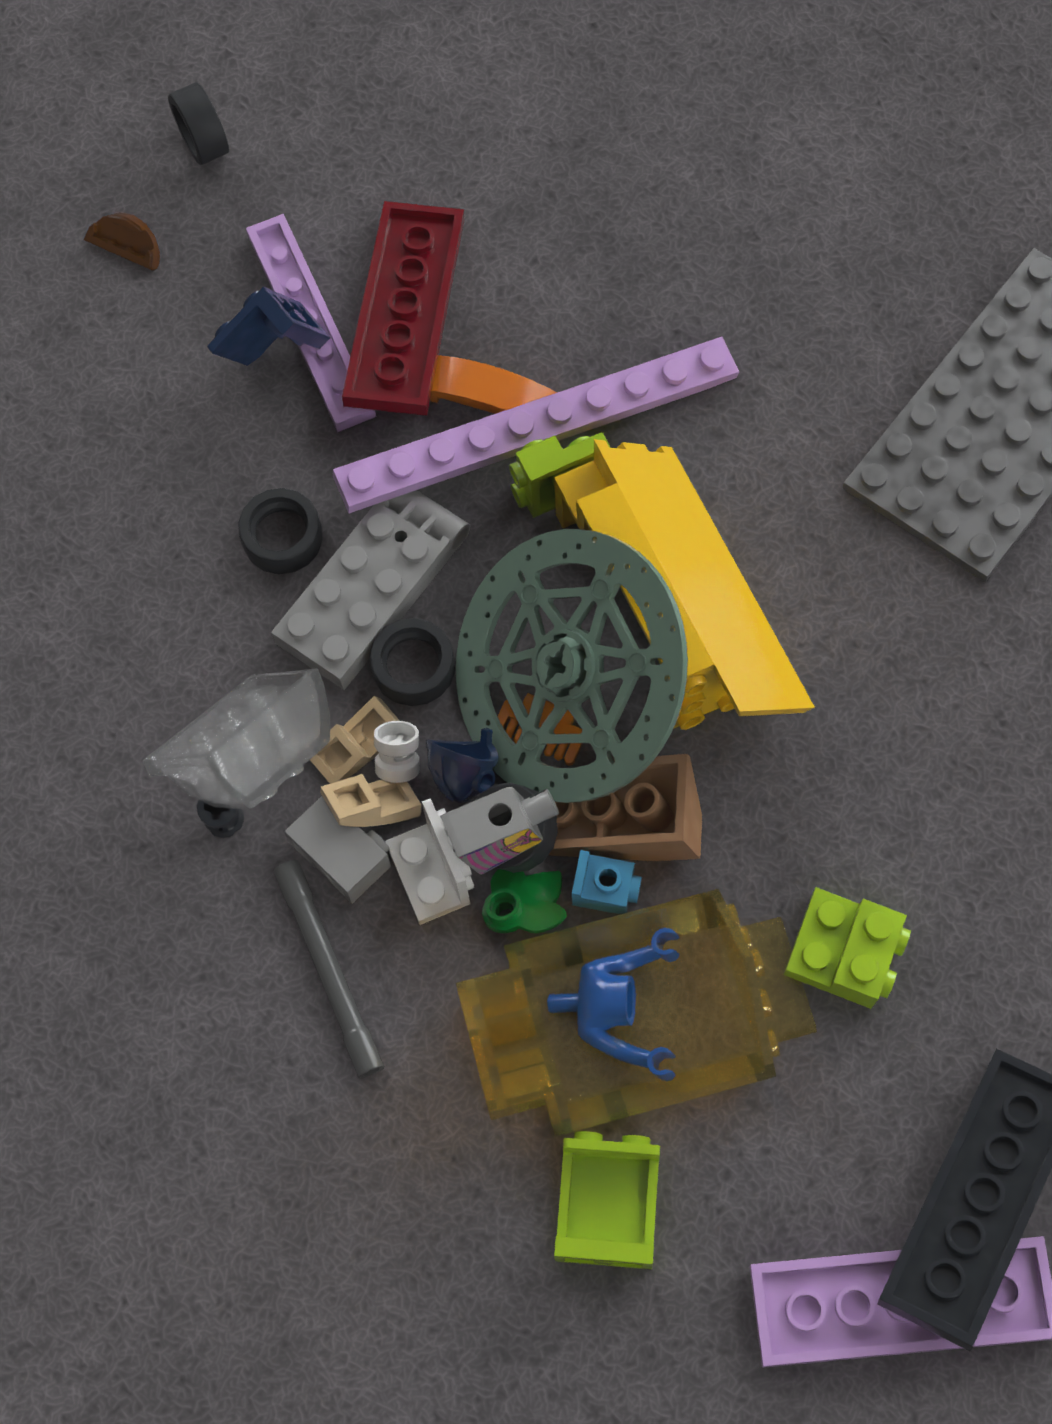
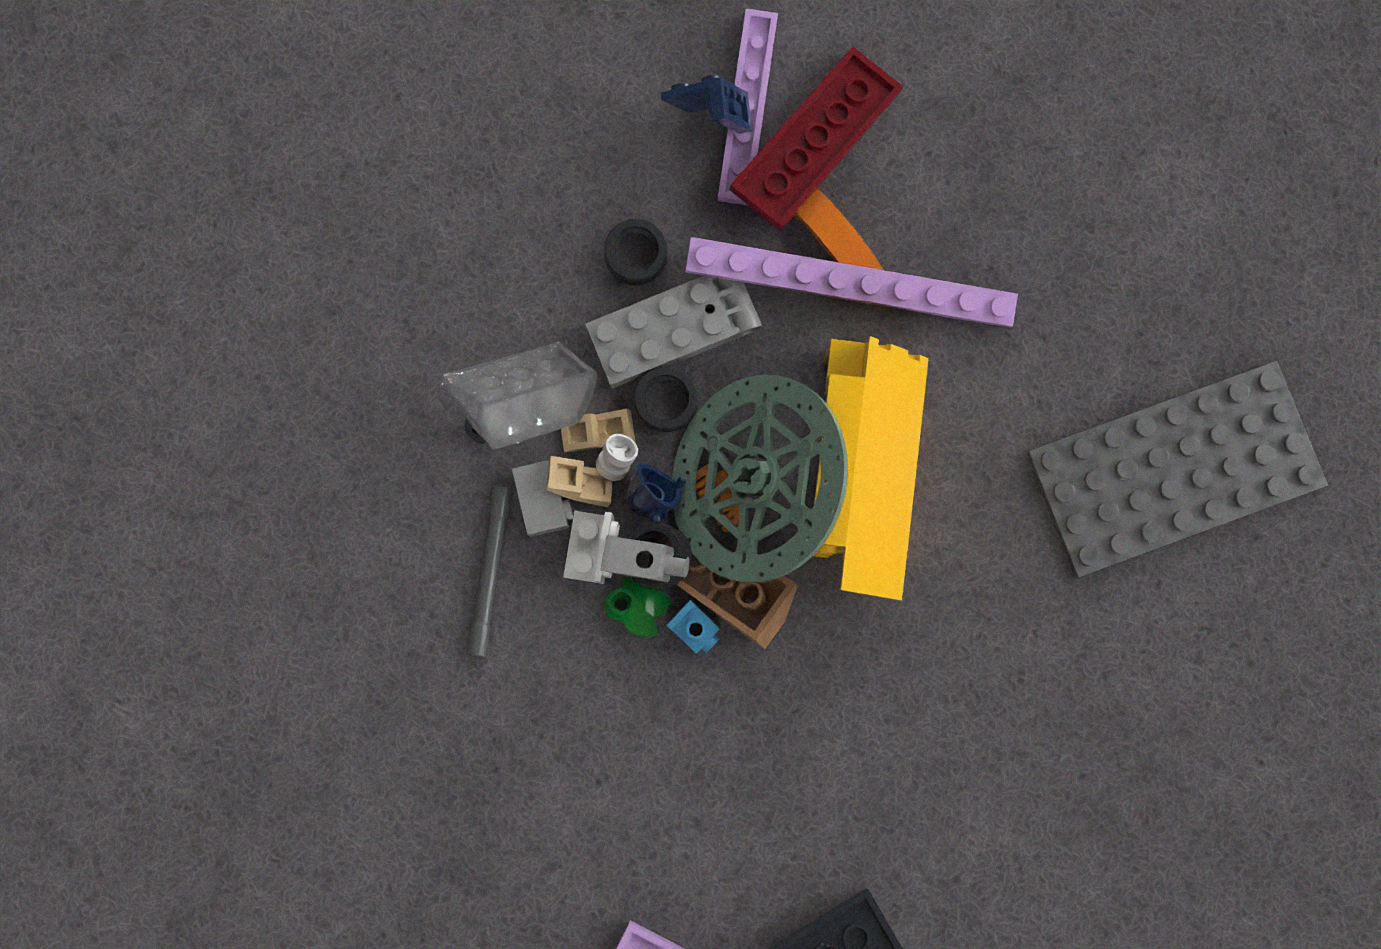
camera: 25 degrees right, 15 degrees up
(541, 462) = (833, 322): lime plate -> none
(607, 1201) = (568, 829): lime panel -> none
(610, 1001) = (647, 708): blue piece -> none
(711, 1007) = (659, 724): clear yellow panel -> none
(848, 947) = (819, 765): lime plate -> none

